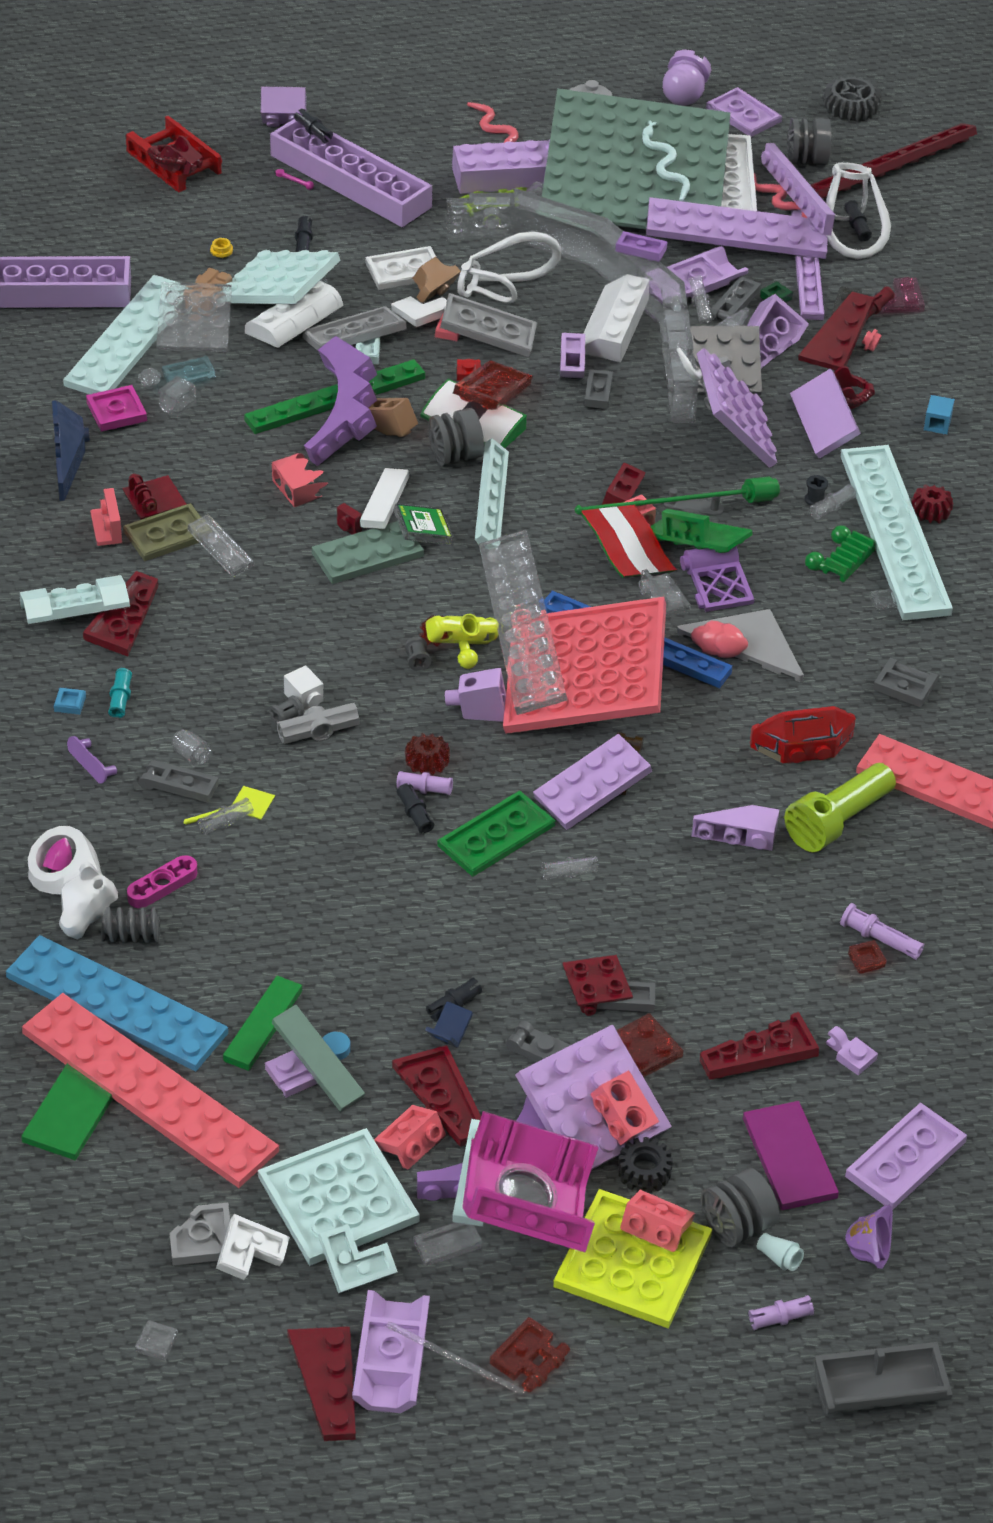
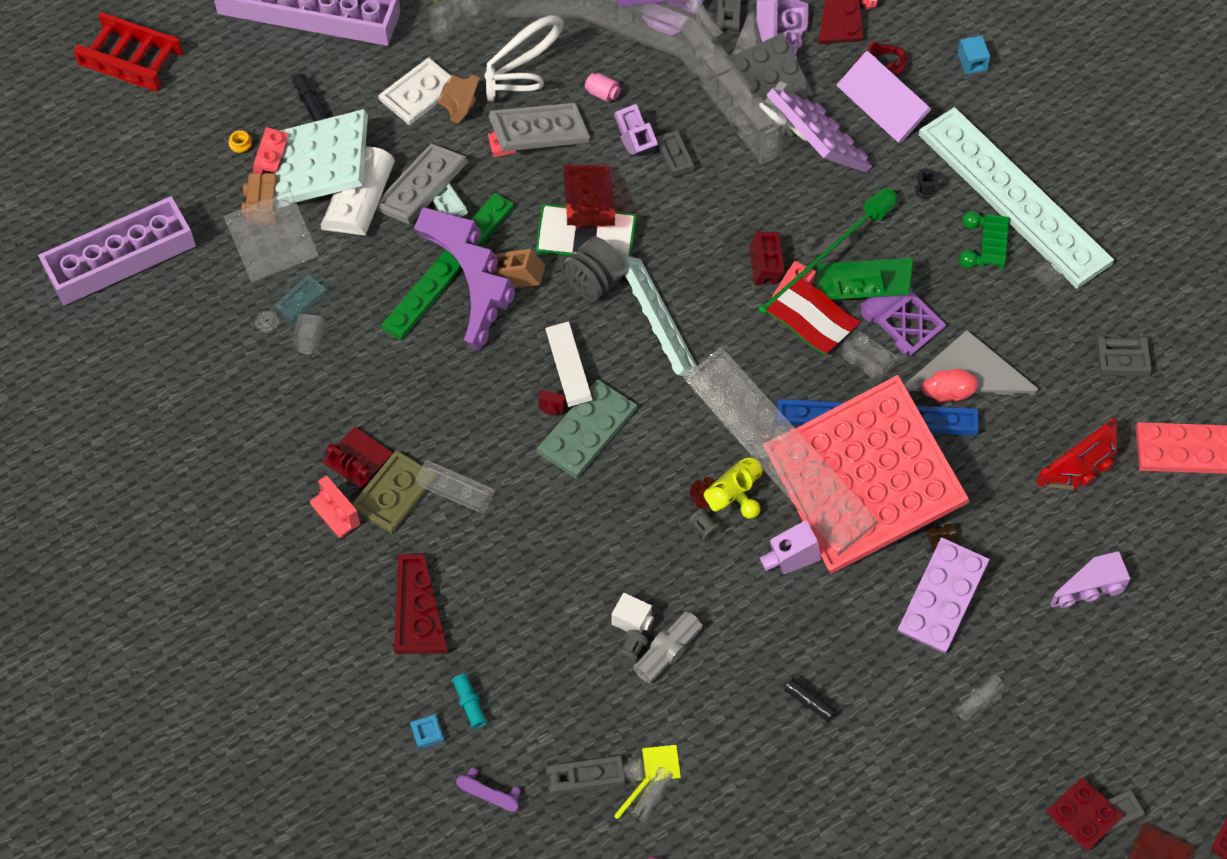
camera: 25 degrees left, 15 degrees up
(69, 445) = (242, 434): dark blue wedge -> none
(84, 599) = (365, 617): light aqua piece -> none
(116, 408) = (259, 371): dark pink plate -> none
(120, 344) = (215, 286): light aqua plate -> none
(176, 156) = (143, 58): dark red piece -> none
(191, 747) = (574, 732): clear brick -> none
(223, 794) = (633, 770): none -> clear plate
(238, 258) = (270, 151): none -> coral bracket
(280, 173) = (238, 30): dark pink hinge -> none
(294, 475) = (477, 378): coral piece -> none
(419, 313) = (466, 139): white tile -> none
(423, 524) = (620, 377): tile -> none
(425, 782) = (800, 667): lavender pin -> none
(427, 754) = (775, 638): clear red gear -> none
(466, 367) = (547, 182): red plate -> none
(496, 833) = (892, 690): green tile -> none
(569, 318) = (602, 87): none -> bright pink brick
(616, 317) = (643, 69): white slope -> none
(819, 818) = (1156, 546): lime piece -> none
(832, 502) = (945, 189): clear pin -> none
(932, 503) = (1027, 153): dark red gear -> none

